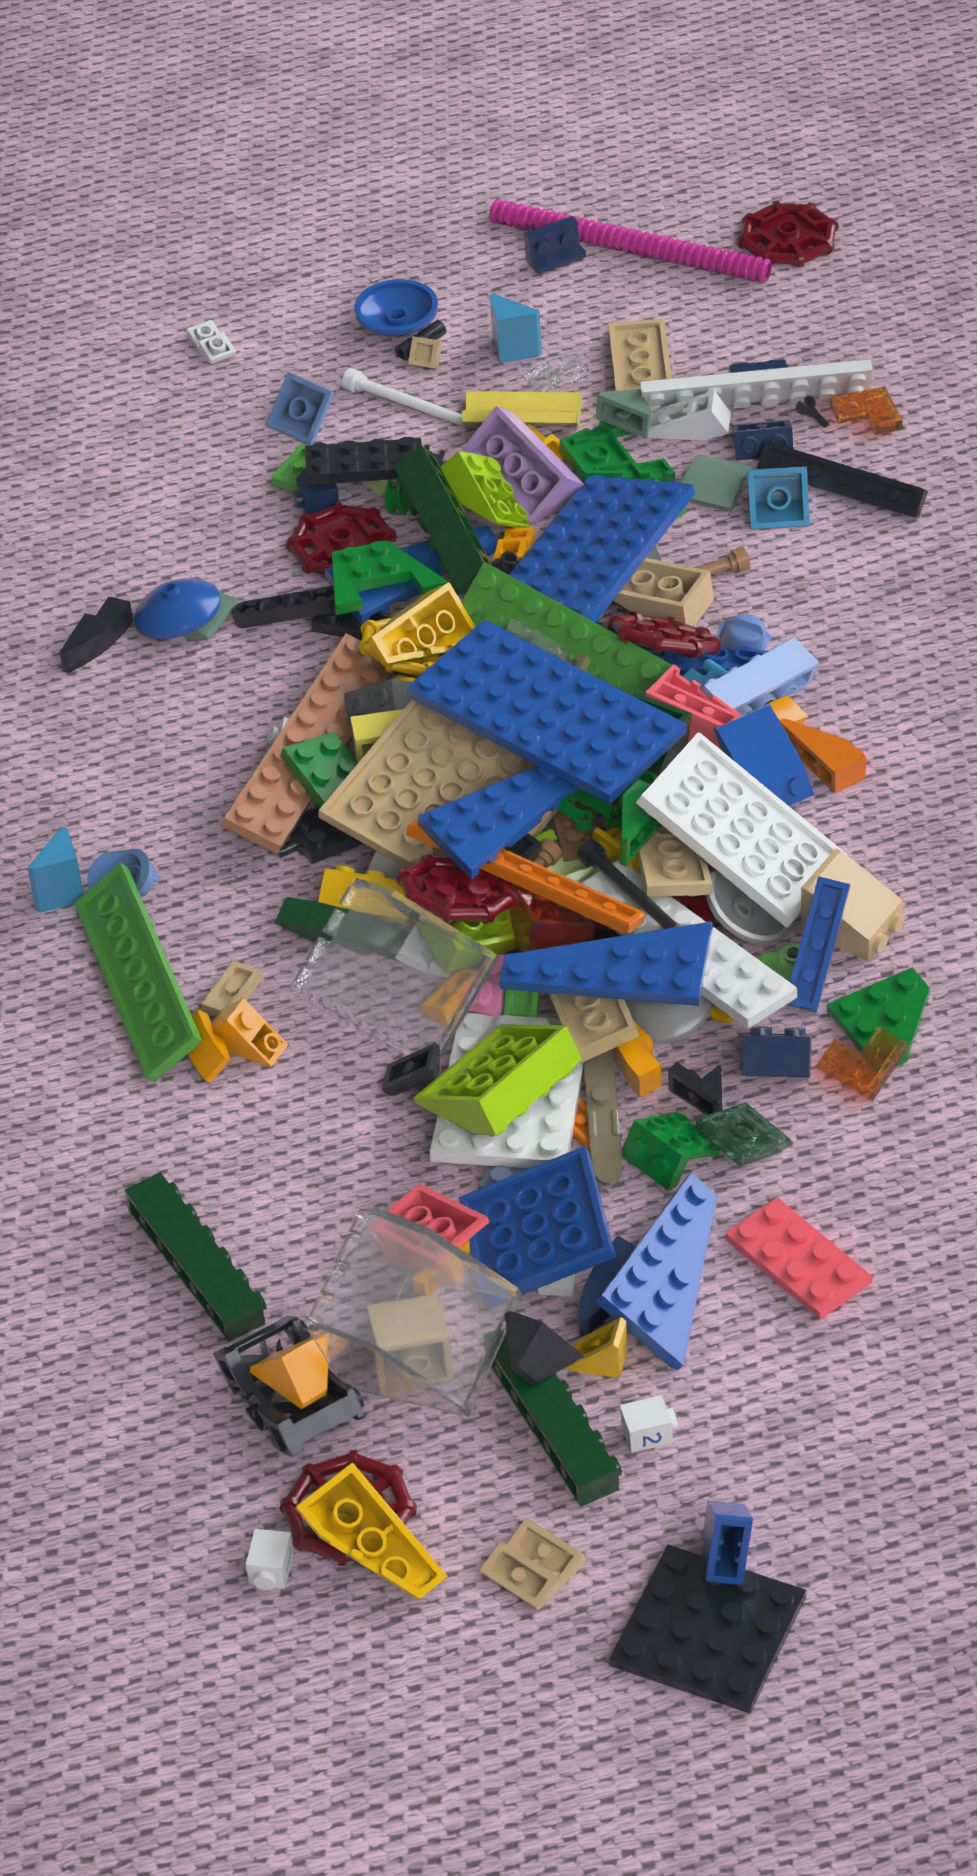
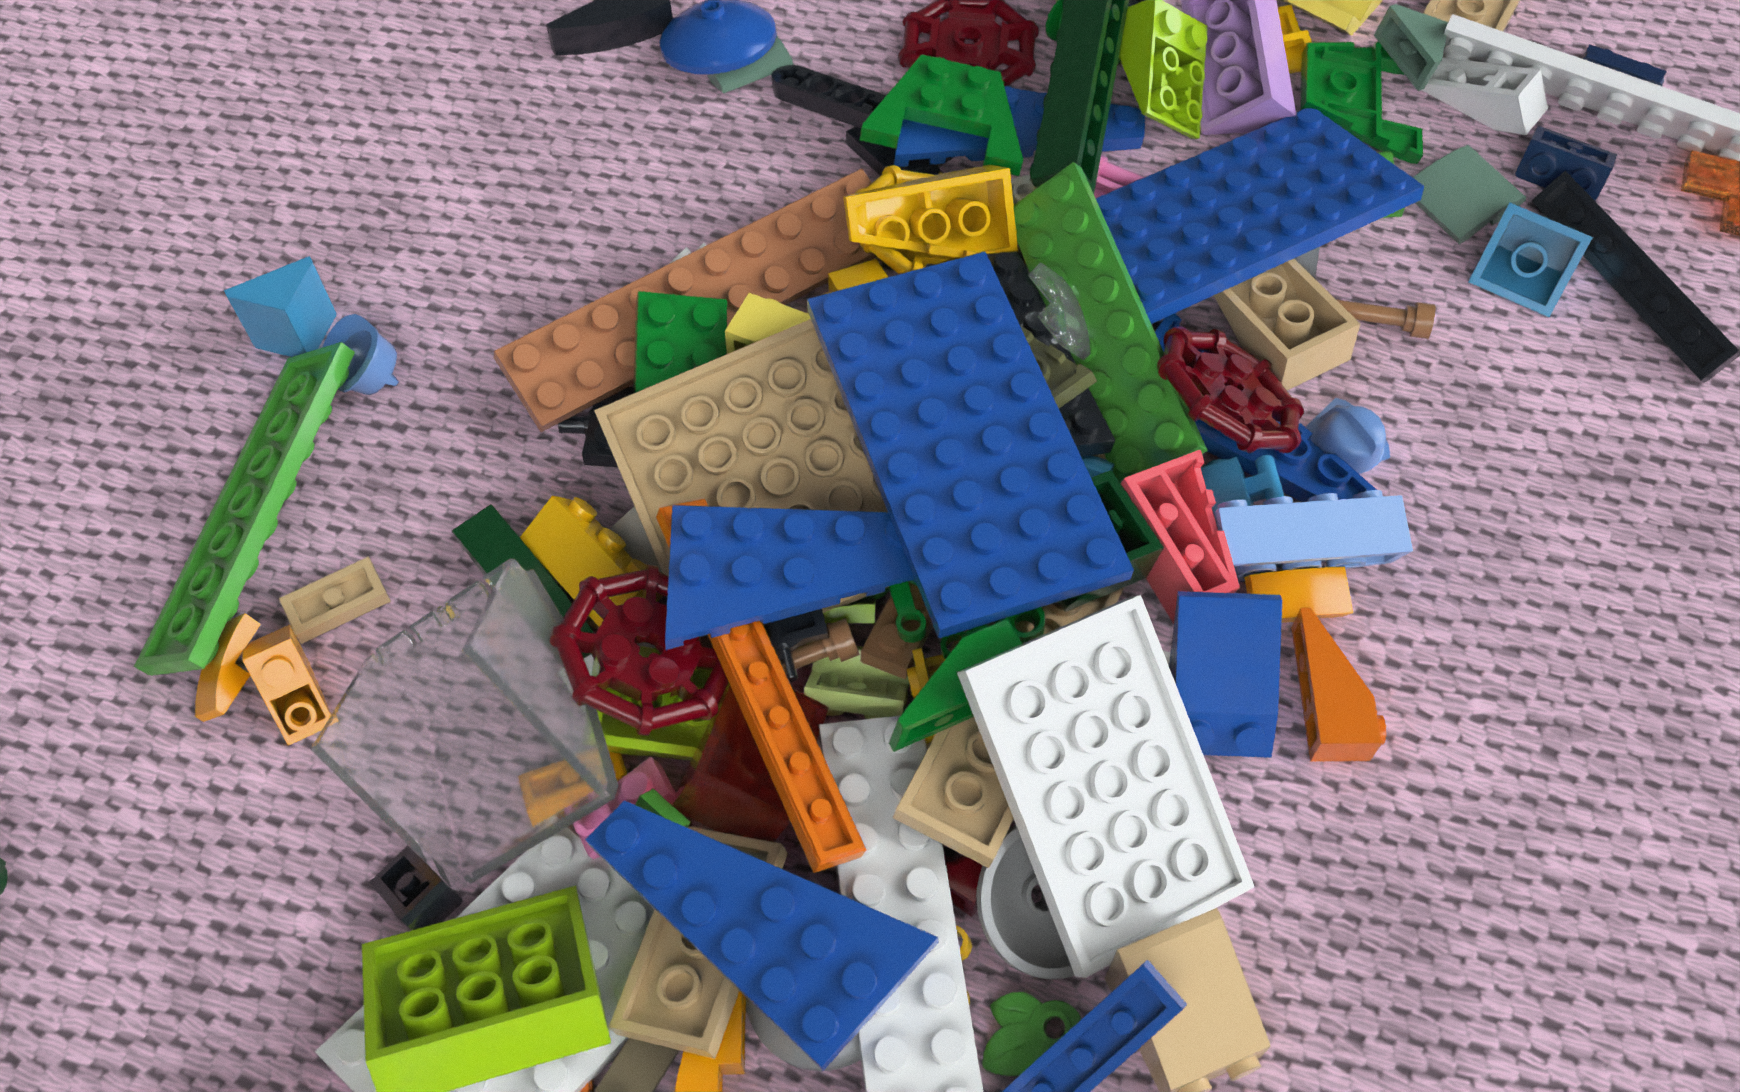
camera: 30 degrees right, 15 degrees up
(377, 698) = (797, 281): dark grey brick -> none
(506, 563) = (1121, 173): black hand -> none
(516, 541) = (1157, 153): light orange slope -> none
(594, 855) = (881, 692): black piece -> none
(803, 410) = (1656, 156): black hand -> none

